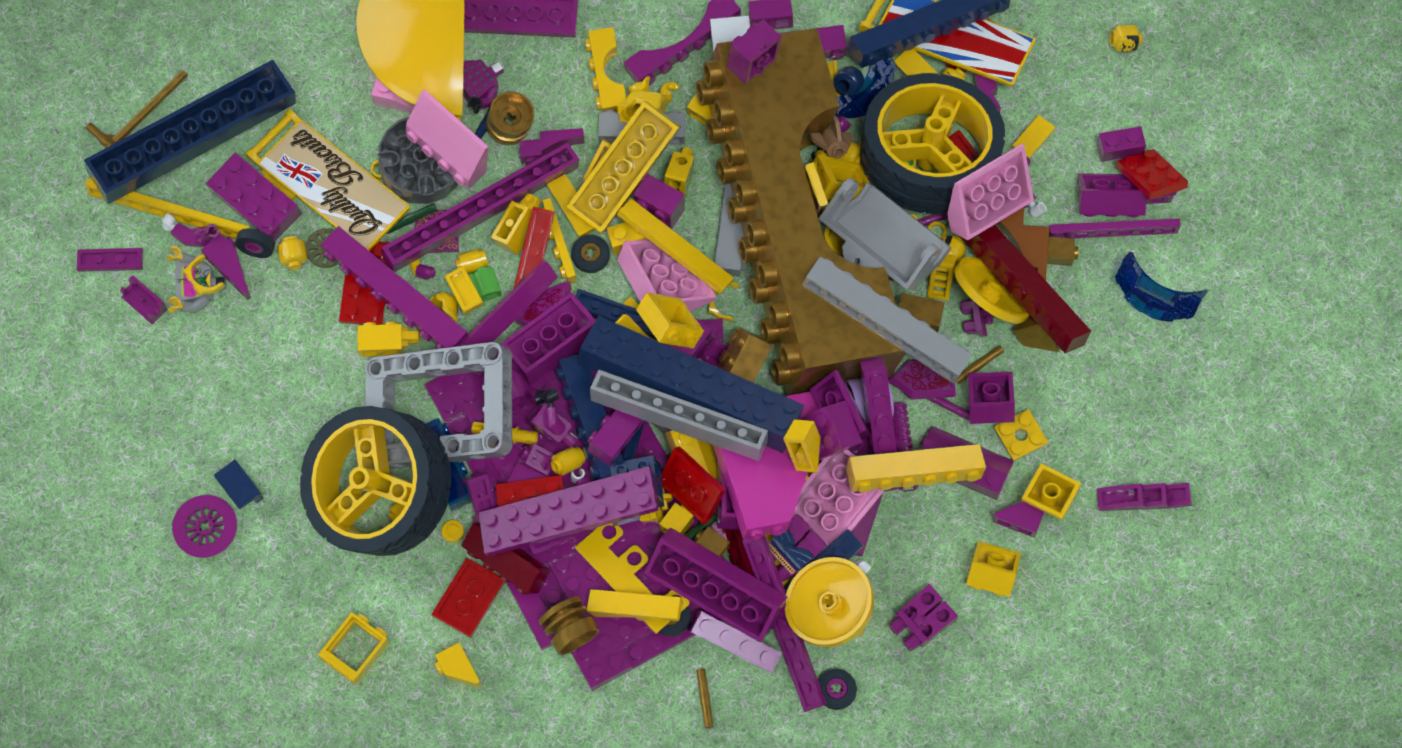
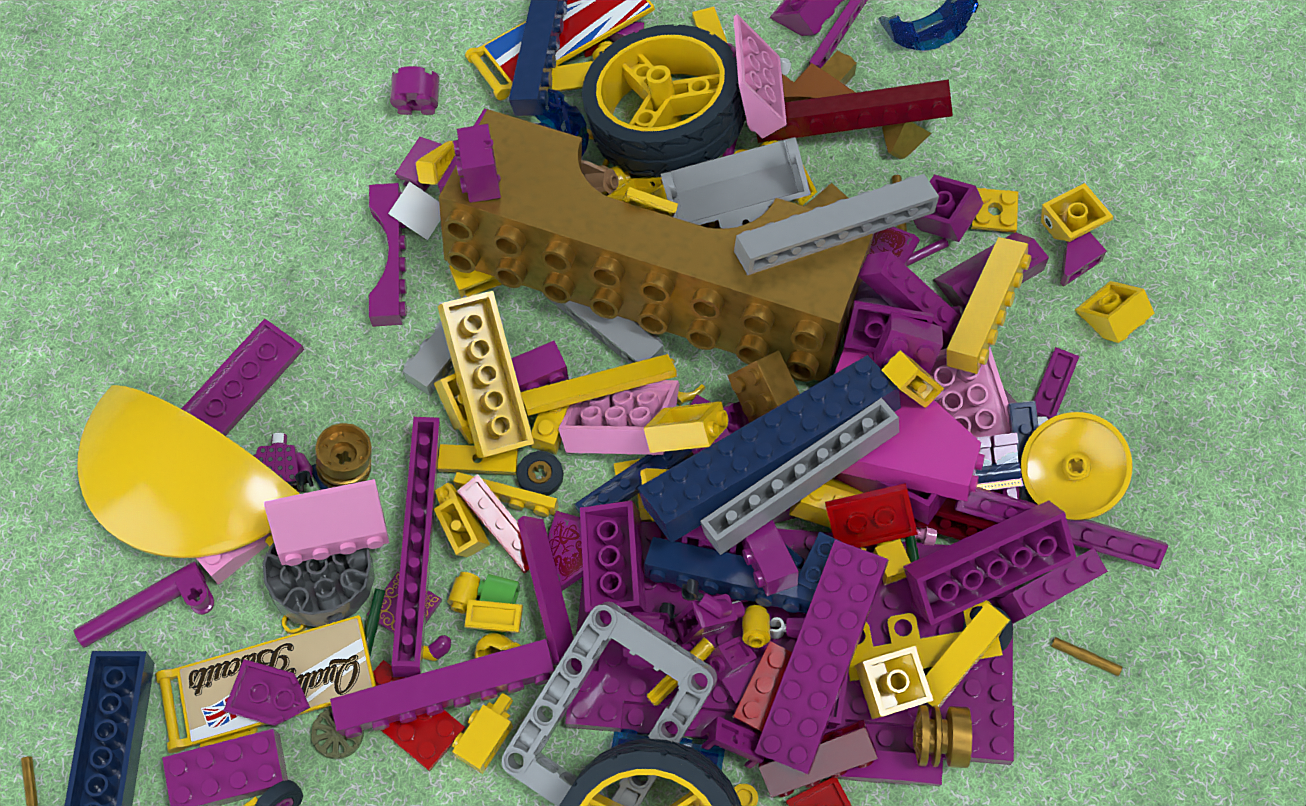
camera: 55 degrees left, 5 degrees down
(292, 252) = (317, 770): yellow head -> none
(318, 185) = (266, 694): none -> magenta tile
(359, 82) = (186, 582): none -> magenta axle
(550, 140) = (393, 458): magenta slope -> none
(585, 572) = (893, 682): none -> yellow slope
(603, 48) = (390, 352): yellow arch -> none
(640, 92) = (424, 323): yellow animal -> none
(680, 170) = (520, 333): yellow torso -> none
(713, 541) = (936, 539): pearl gold brick -> none
(778, 21) = (434, 164): none -> yellow slope
(849, 688) = (1158, 513): black bush -> none
(903, 560) = (1055, 382): none -> magenta tile
(918, 621) = (1129, 400): magenta hips -> none
(978, 325) = (842, 170): magenta hips -> none
(988, 291) = (845, 143): yellow dish -> none
(1144, 497) = (1122, 147): magenta slope -> none

